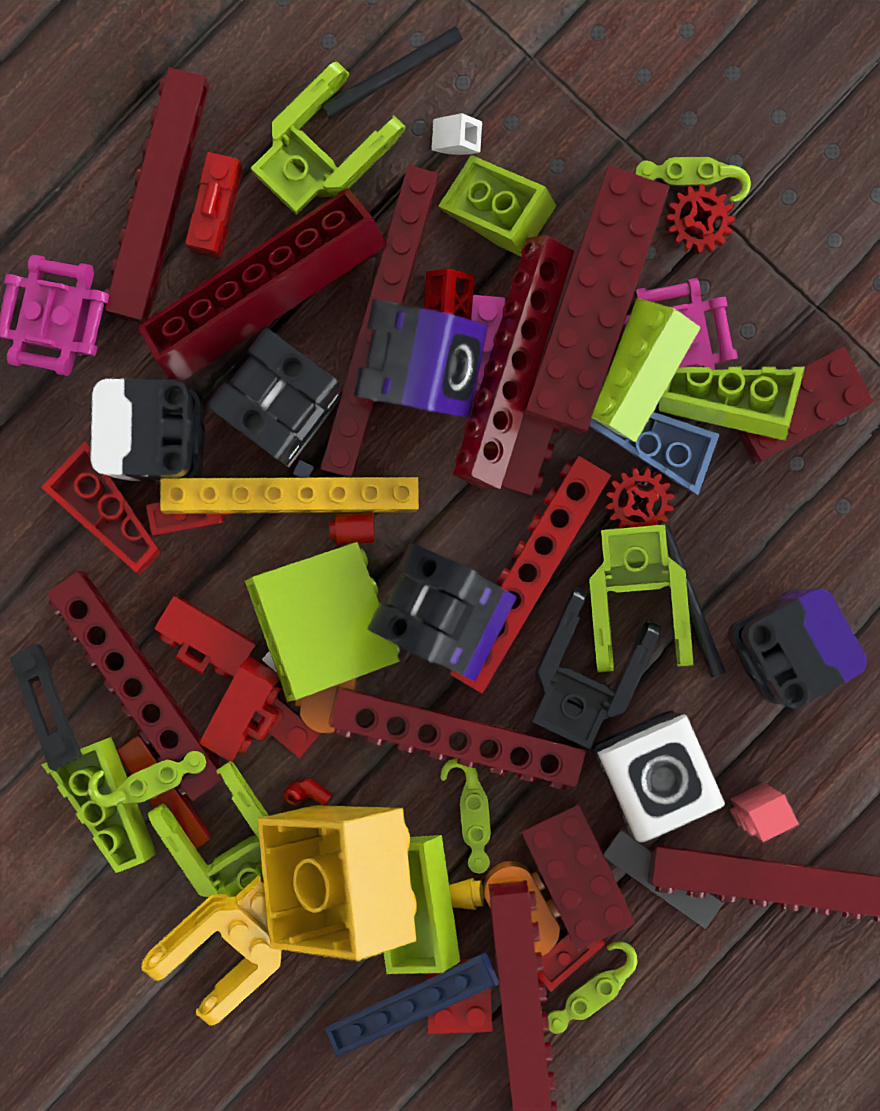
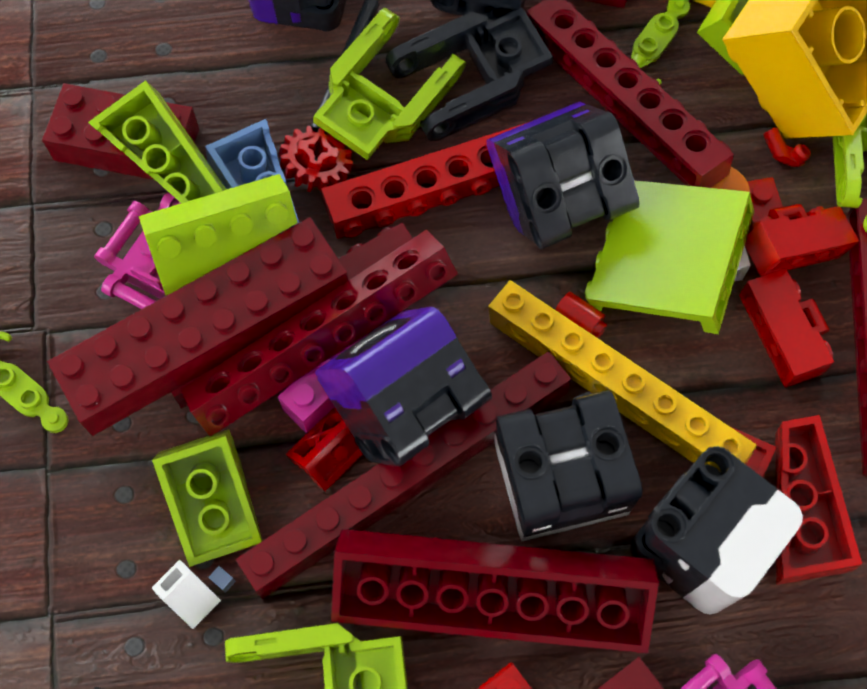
camera: 140 degrees left, 20 degrees down
(442, 163) = (222, 579): none -> sand blue piece
(704, 231) = (50, 336): red gear -> none

